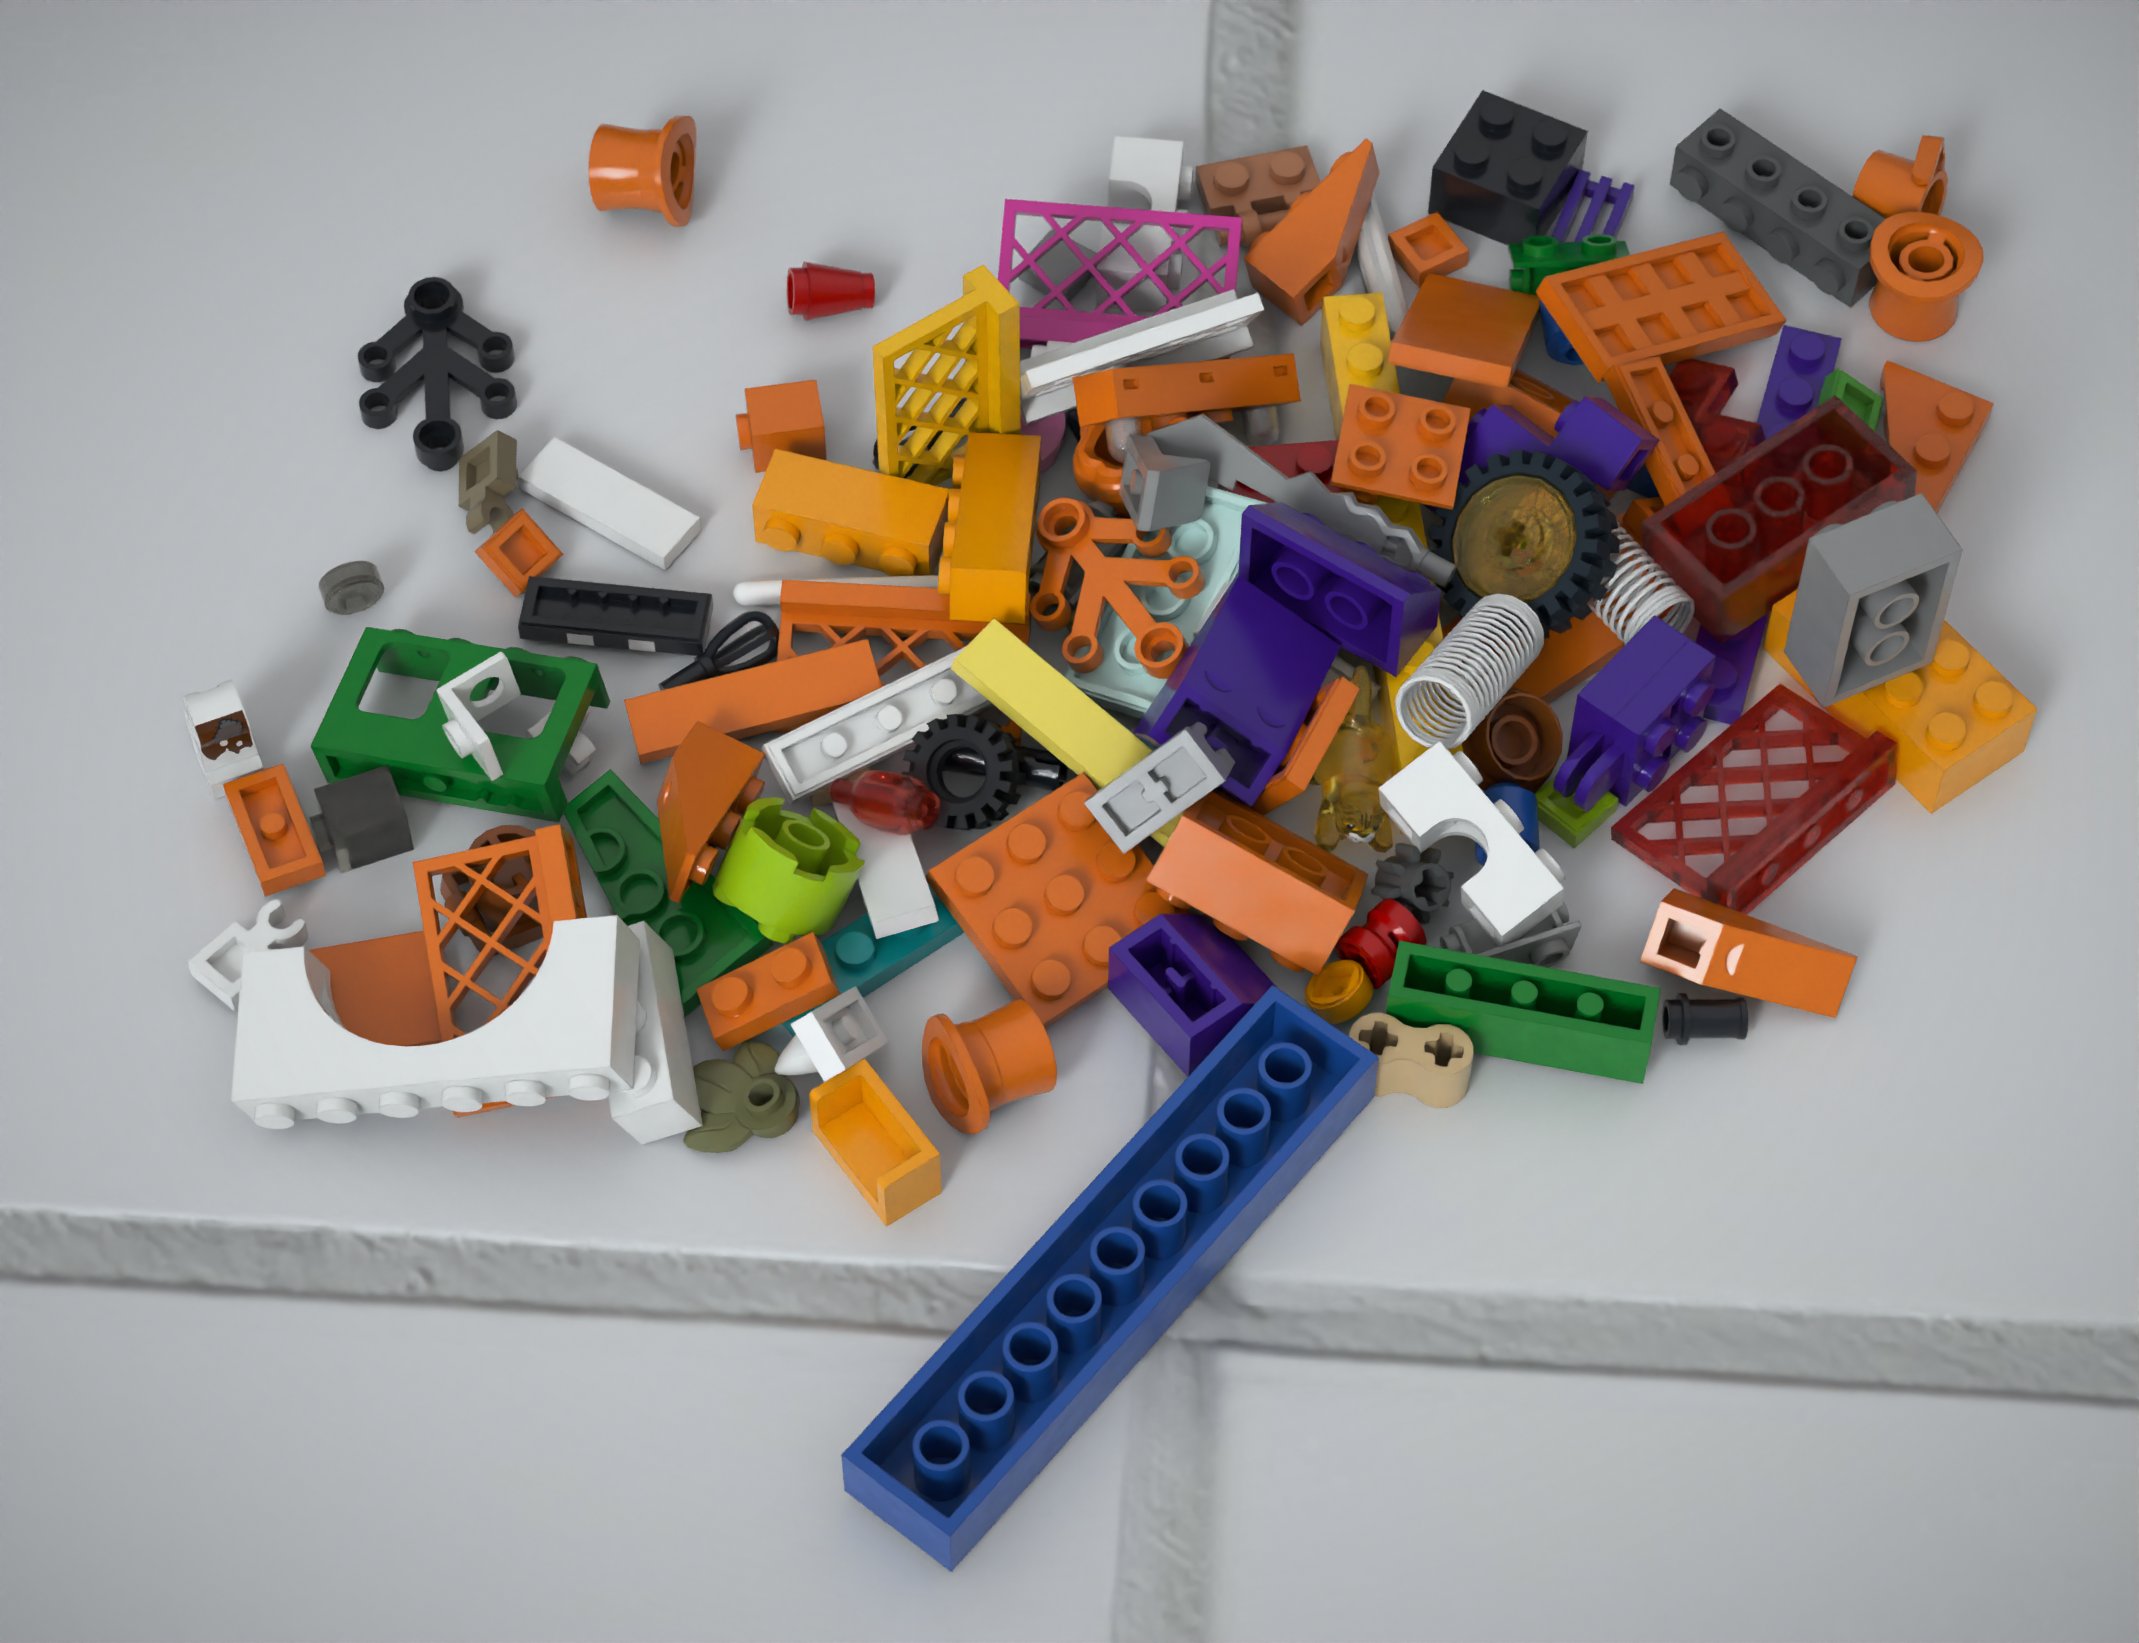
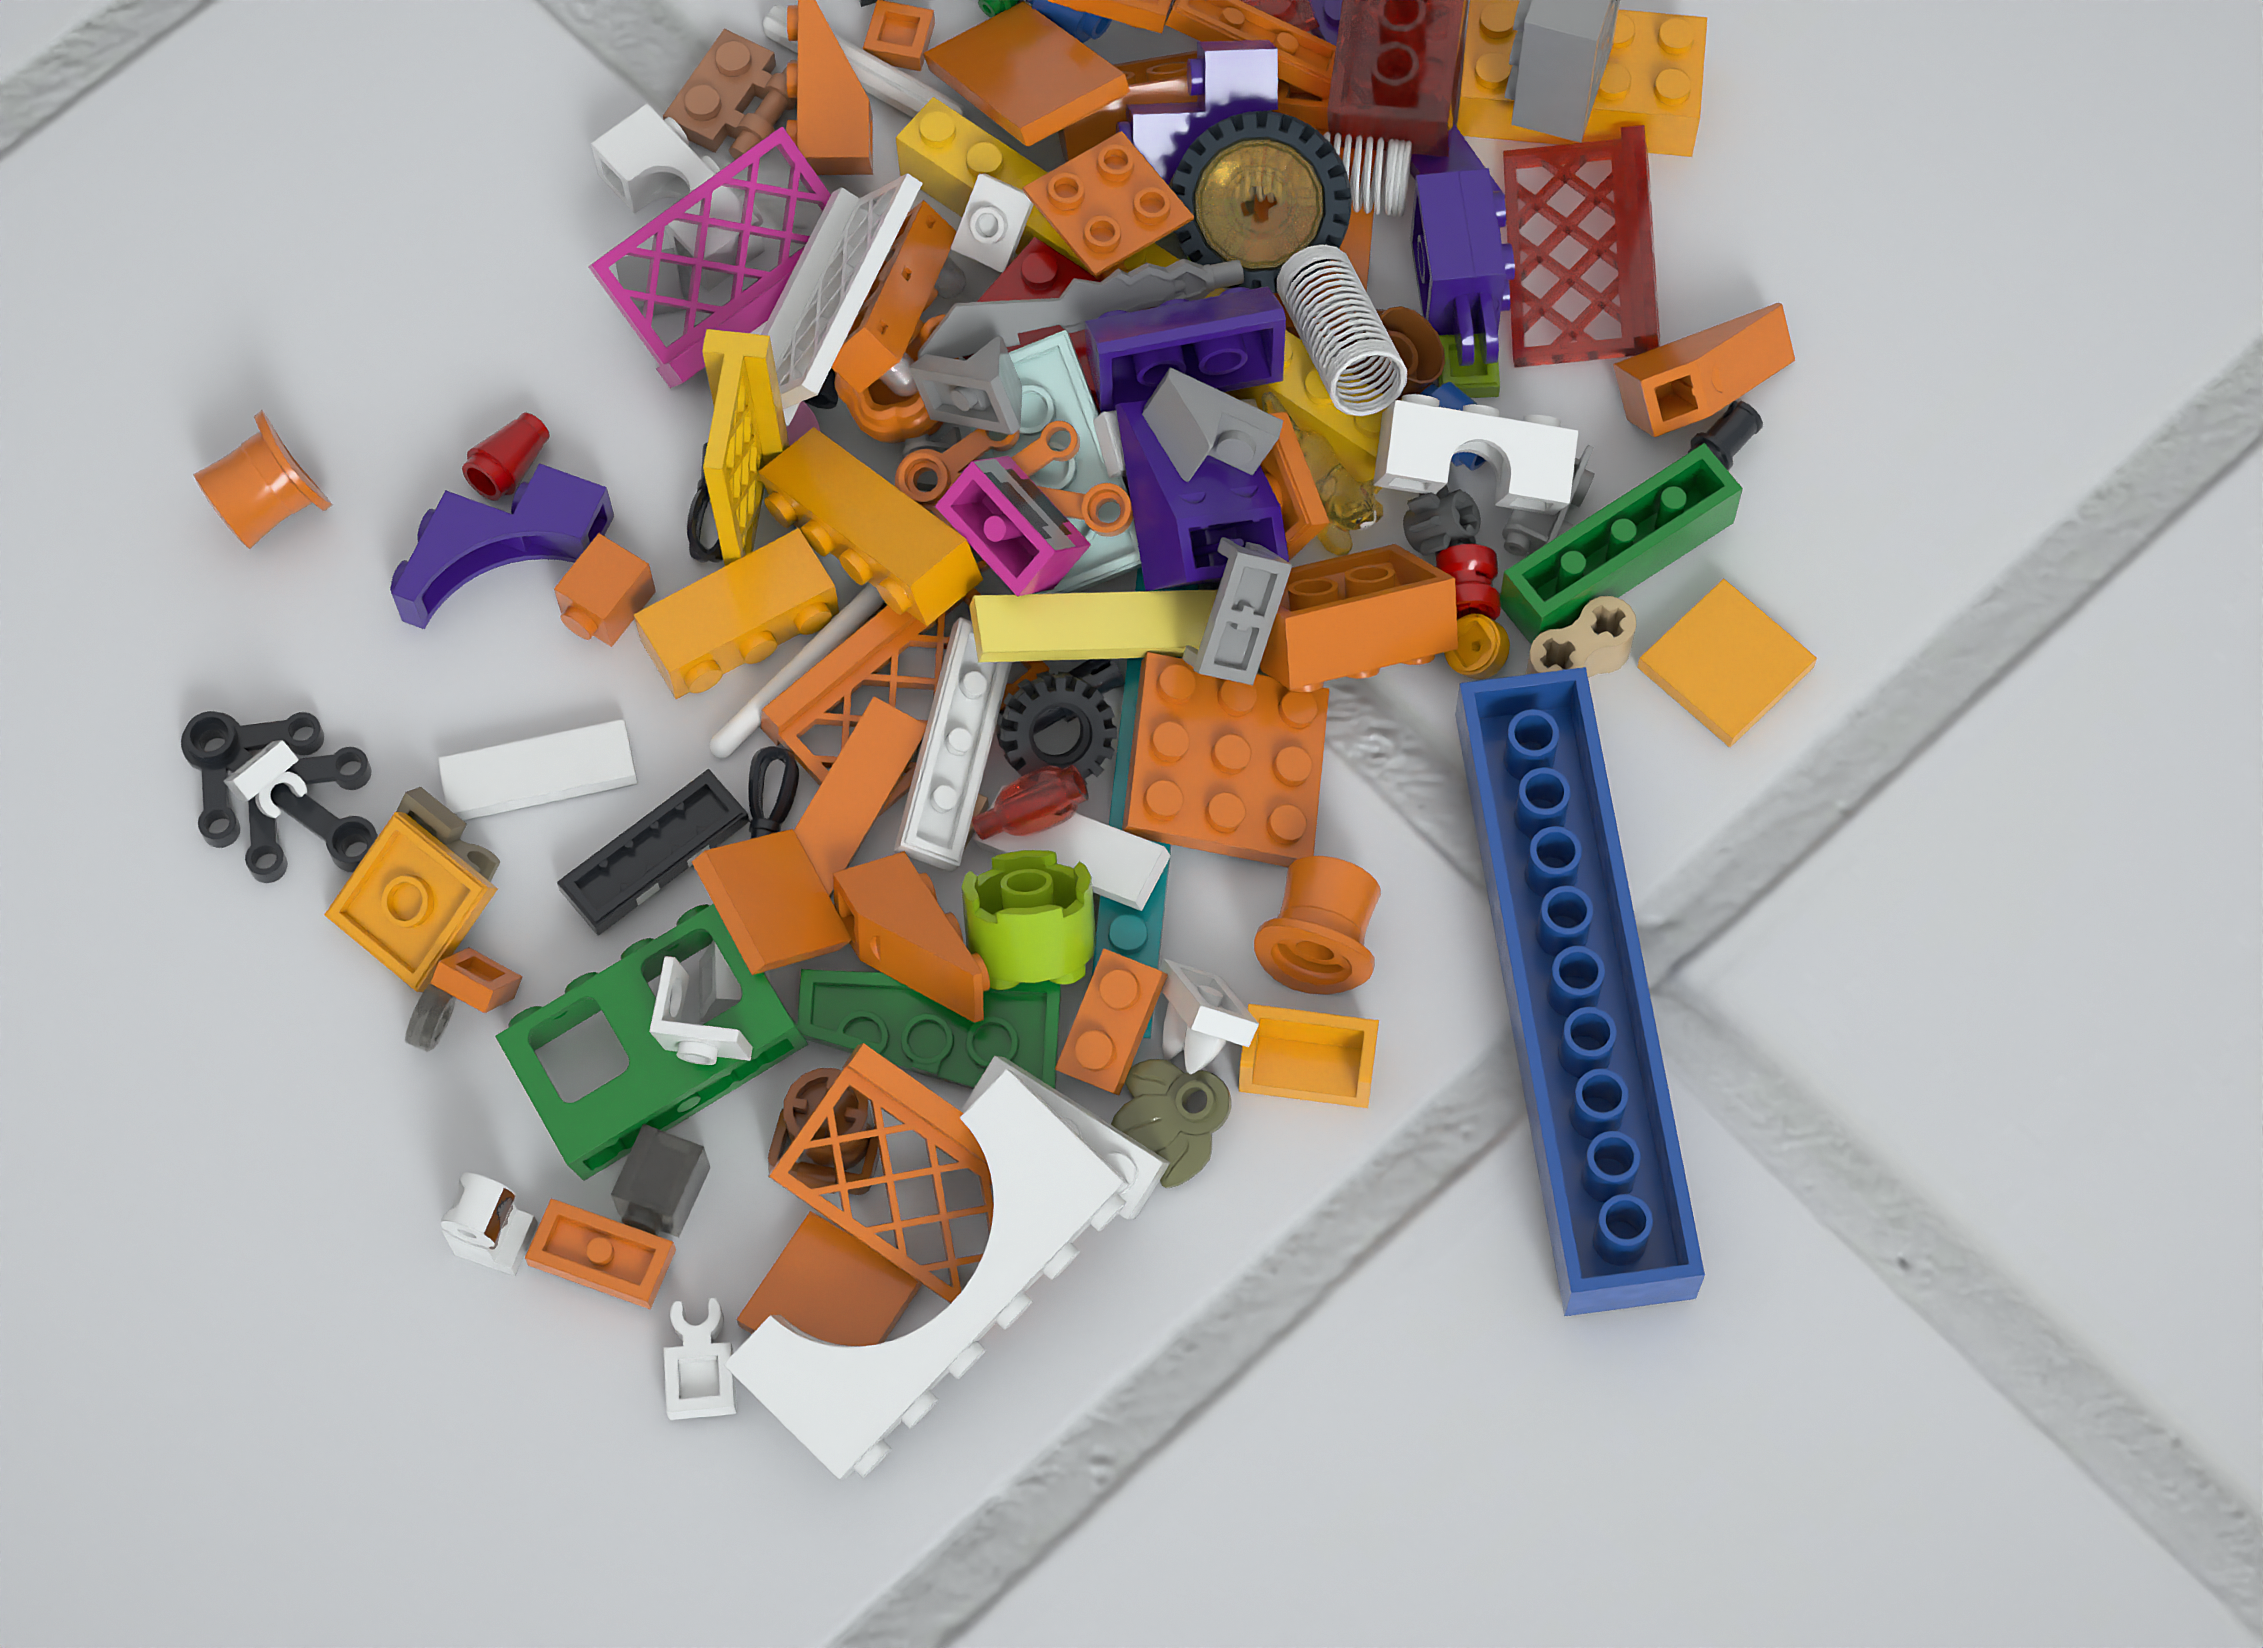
camera: 45 degrees left, 10 degrees up
(406, 590) = (476, 980): none -> orange tile
(426, 505) = (410, 901): none -> light orange tile
(429, 342) = (263, 773): none -> white tile
(518, 552) = (523, 871): orange tile -> none
(630, 697) = (771, 901): none -> orange tile
(736, 321) = (464, 538): none -> dark purple arch
(1074, 595) = (1012, 525): none -> dark pink brick
(1184, 984) = (1389, 739): dark purple slope -> none
(1280, 631) = (1203, 421): none -> light grey slope
(1318, 404) = (992, 223): none -> white bracket
(1516, 1172) = (1726, 662): none -> light orange tile

